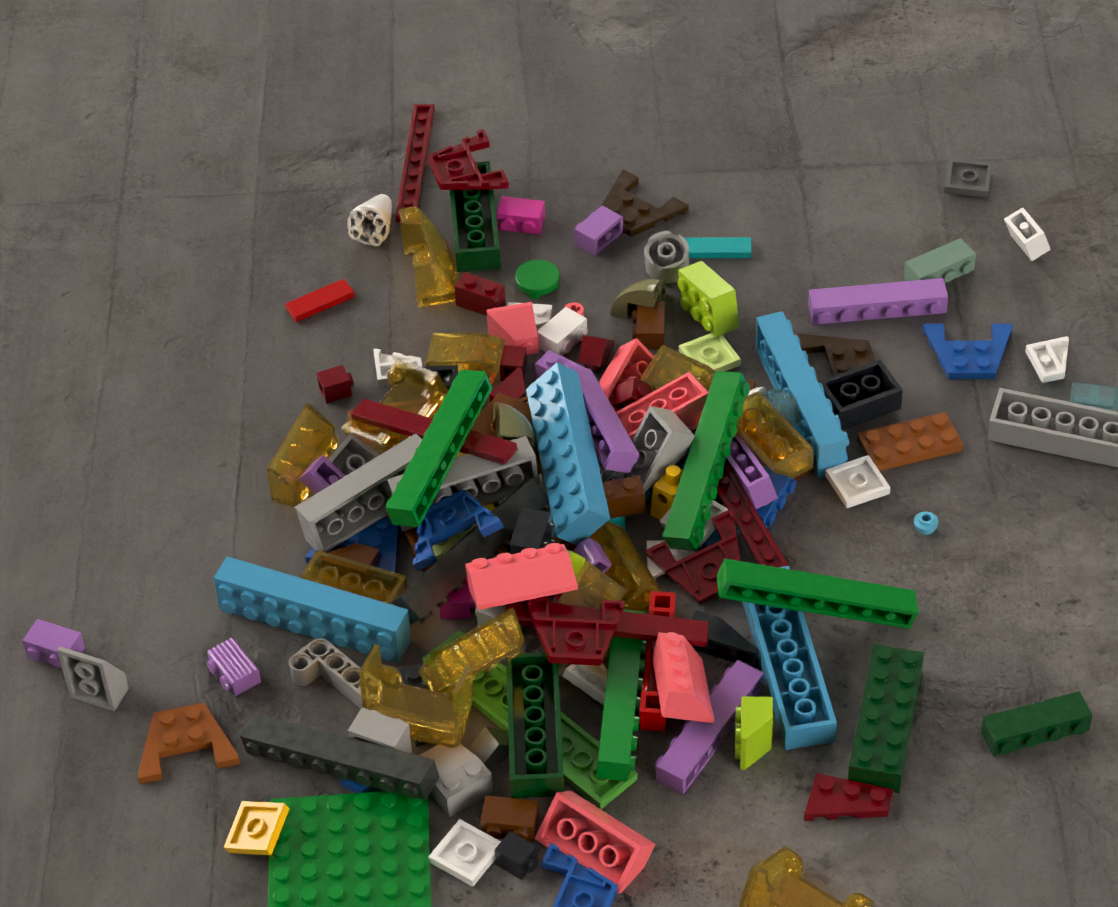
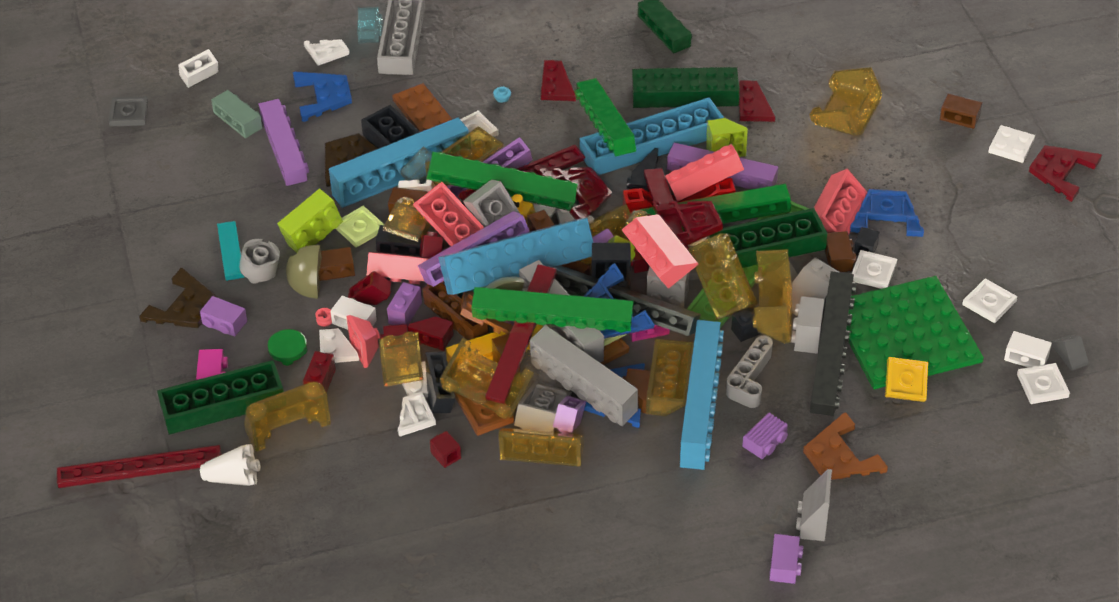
camera: 105 degrees left, 0 degrees up
(319, 300) = (338, 490): red tile -> none
(457, 170) = (175, 404): dark red wing -> none
(942, 582) = (556, 83): none -> dark red wing

